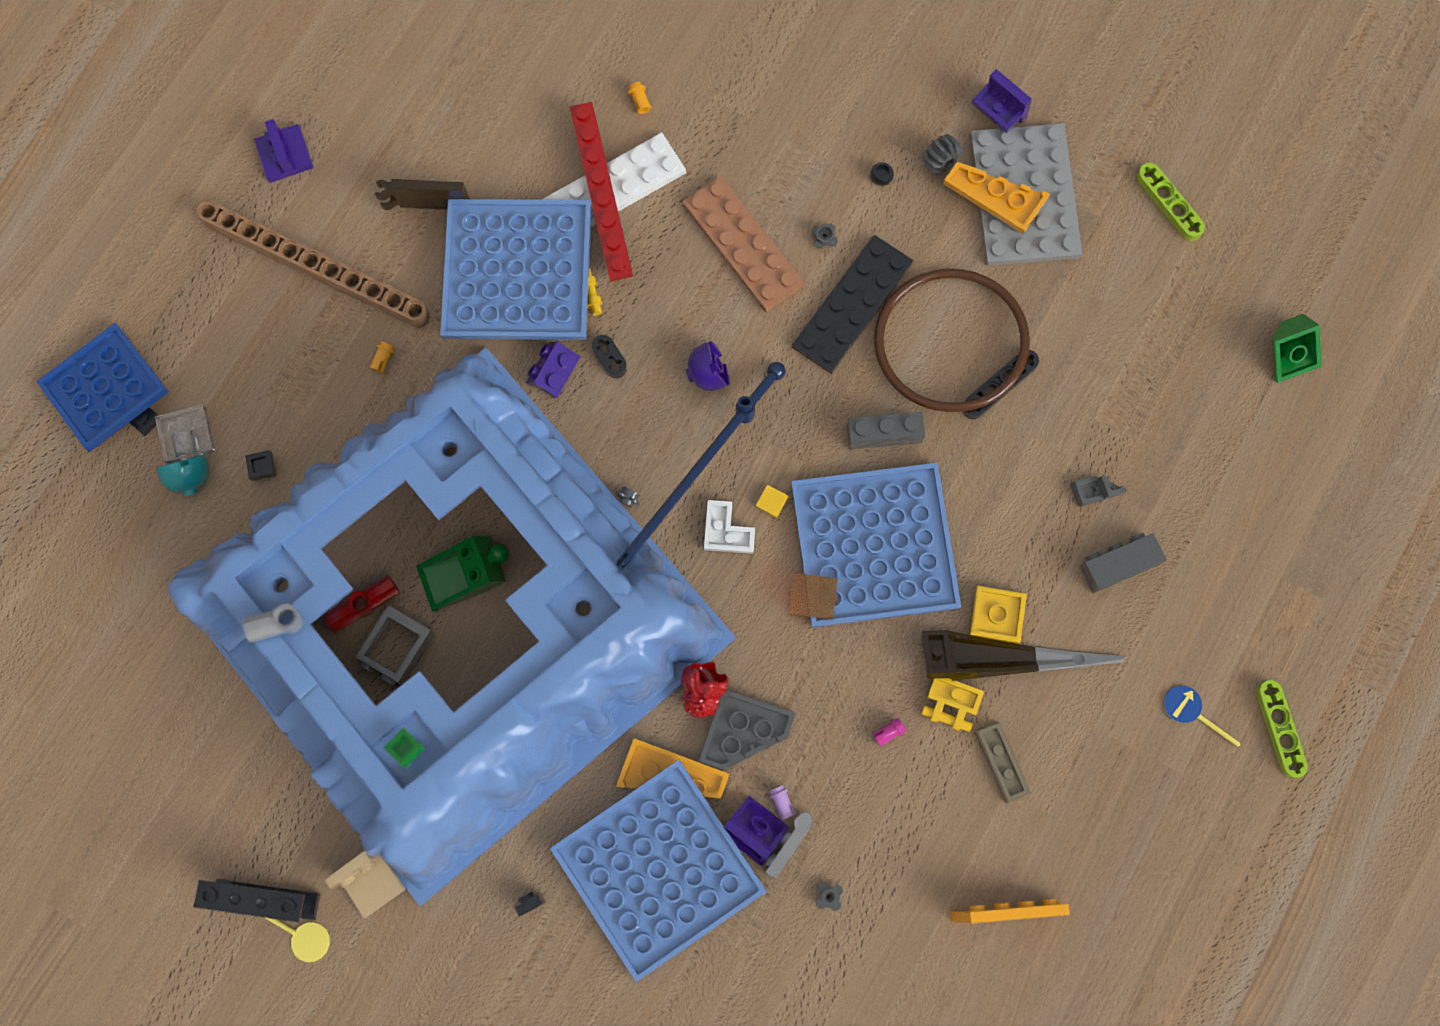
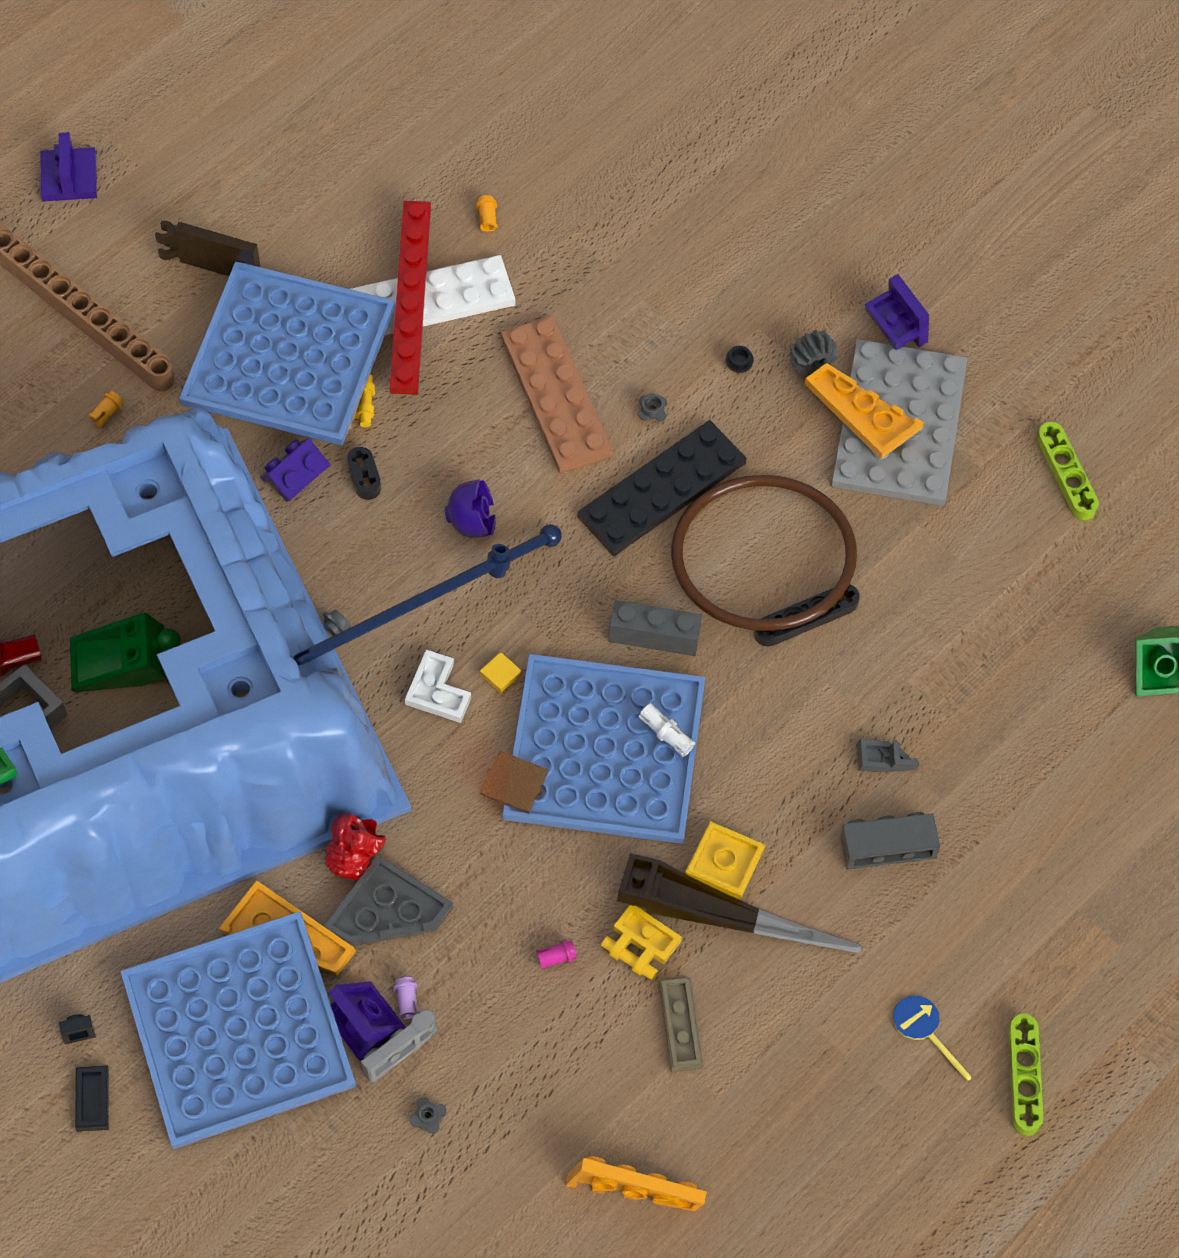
camera: 10 degrees right, 15 degrees down
(559, 956) = (92, 1098): none -> black tile
(922, 519) = (666, 730): none -> white pin

